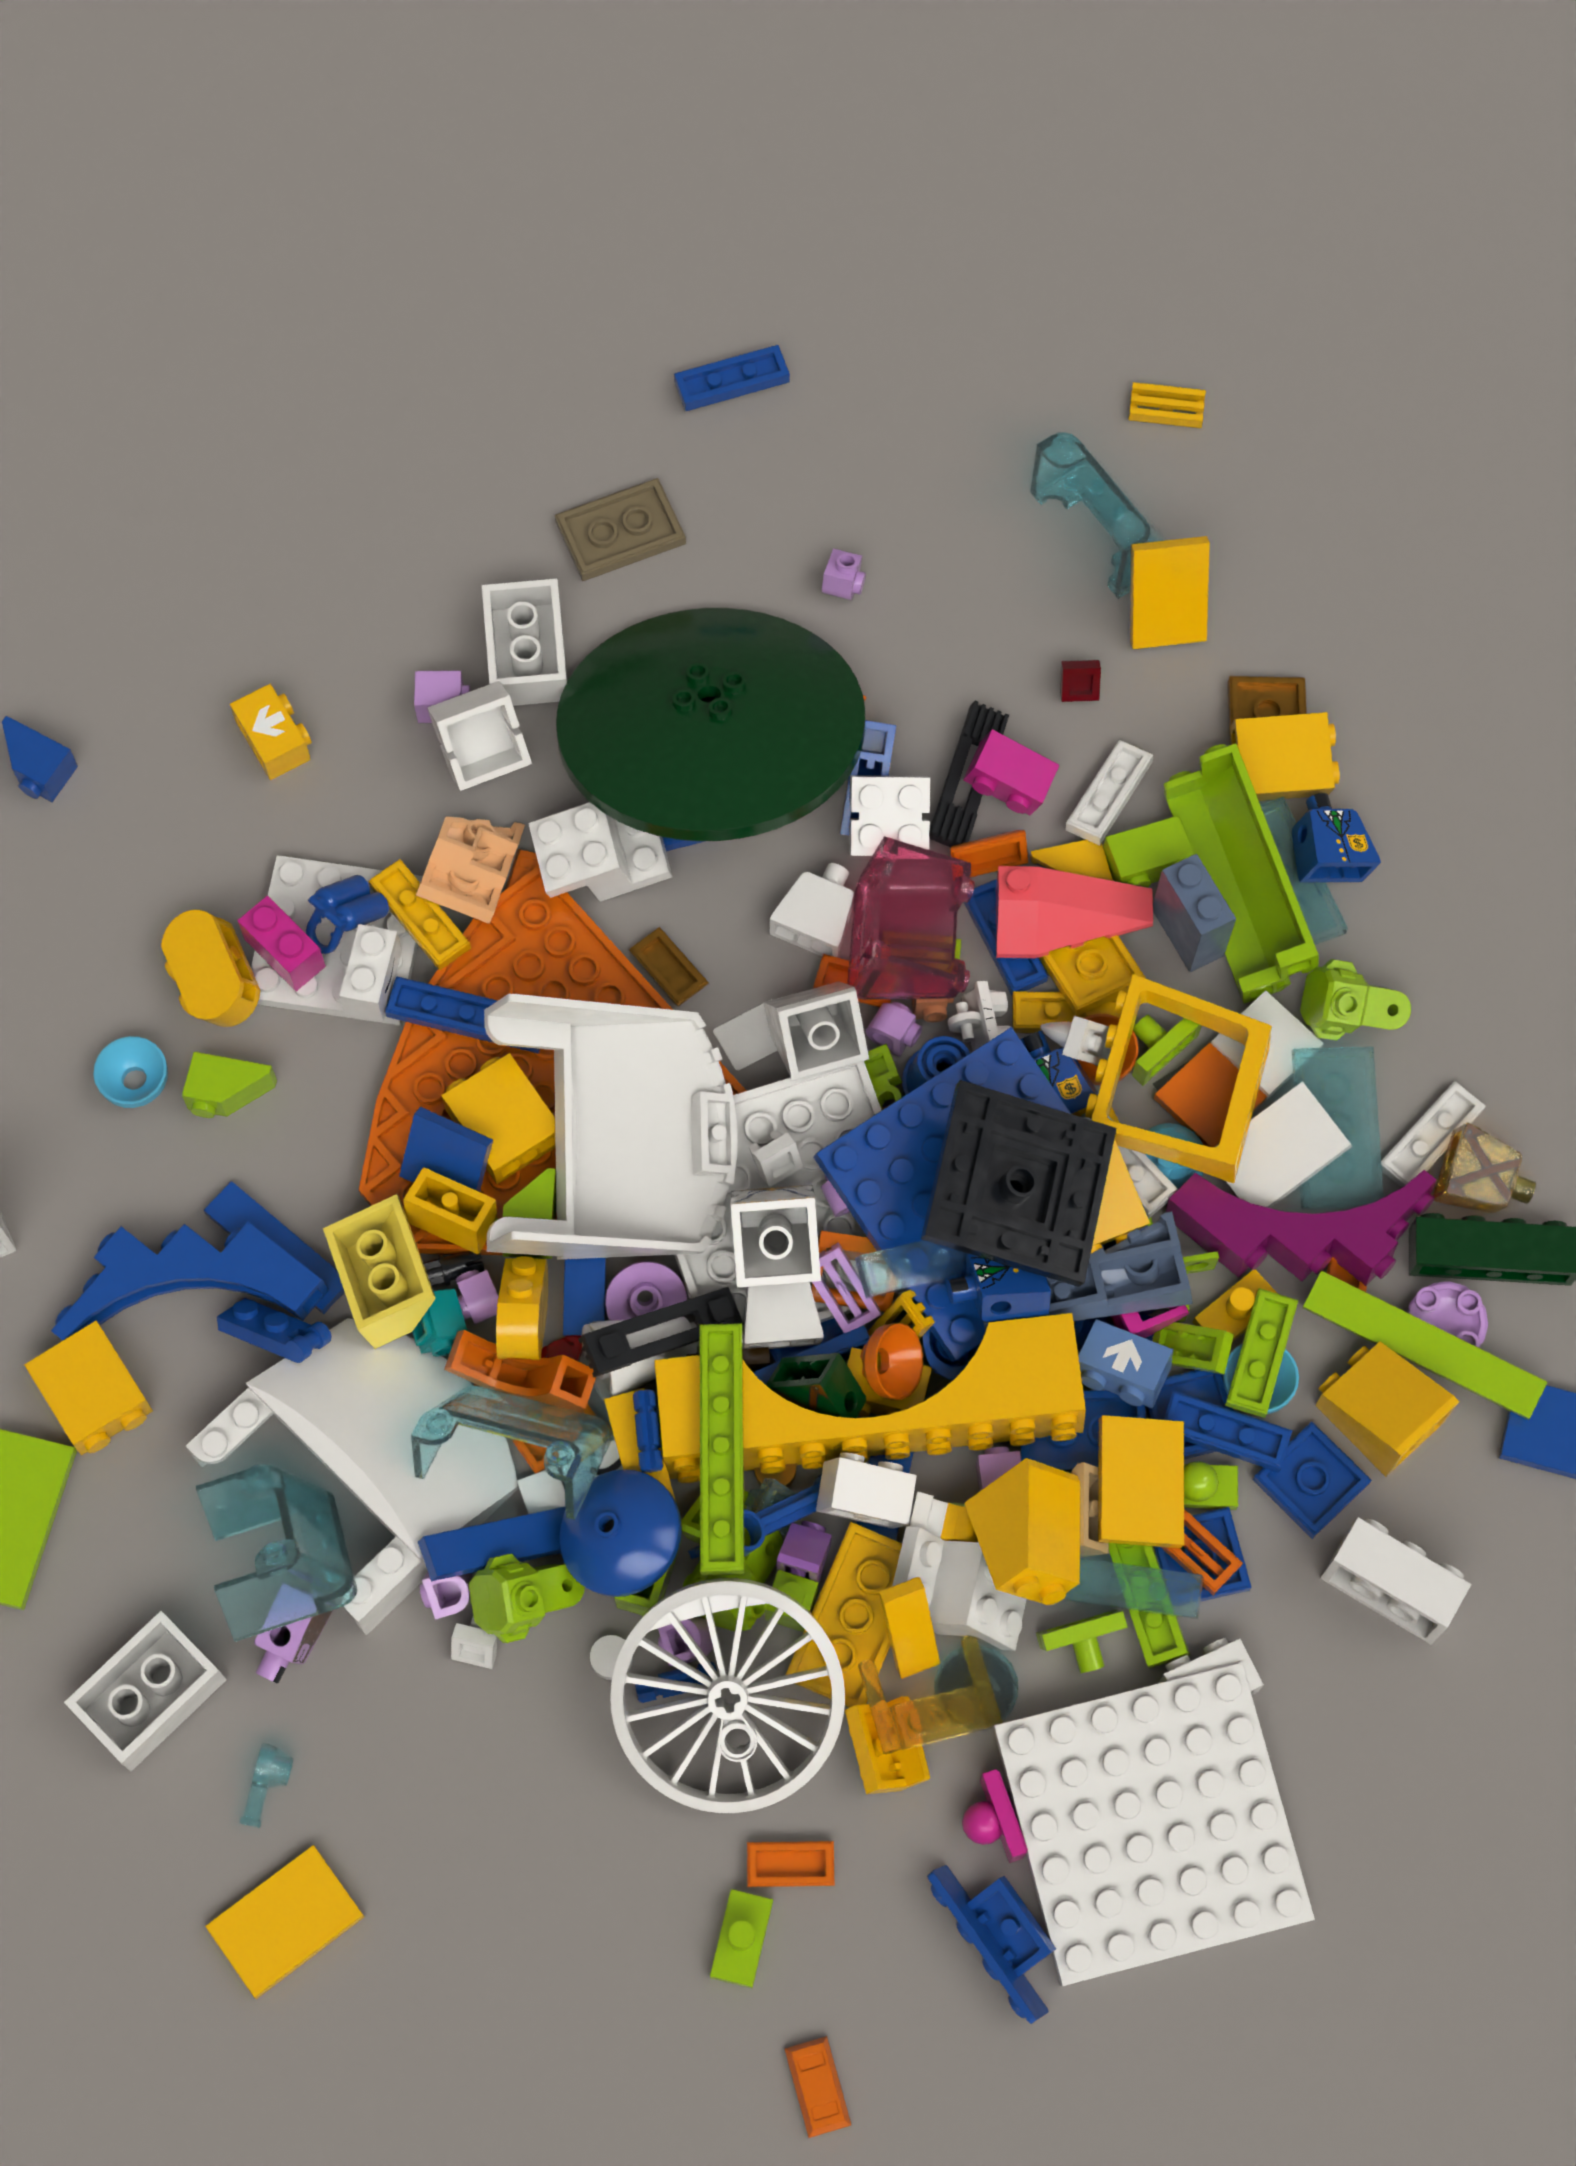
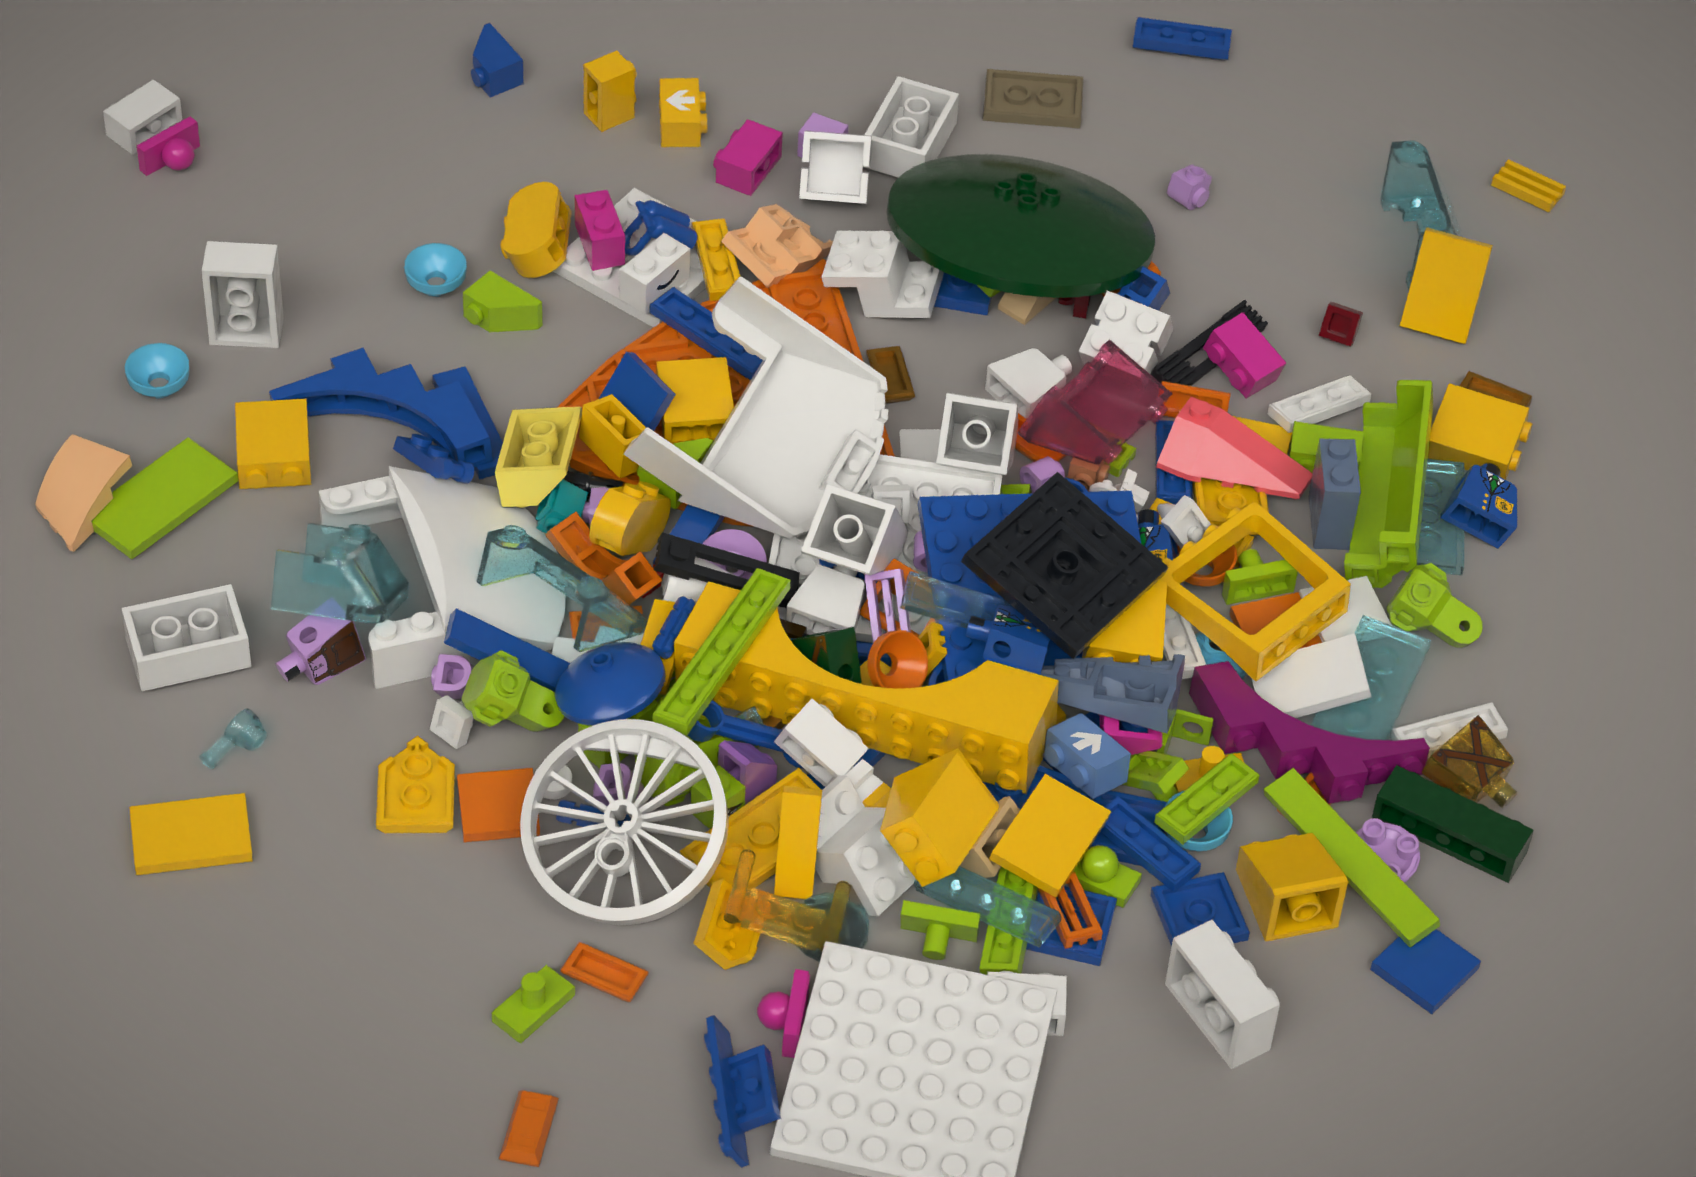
camera: 25 degrees right, 20 degrees down
(186, 746) = (609, 90): none -> yellow brick
(374, 757) = (748, 157): none -> dark pink brick
(481, 1743) = (415, 791): none -> yellow tile
(570, 1716) = (493, 803): none -> orange tile

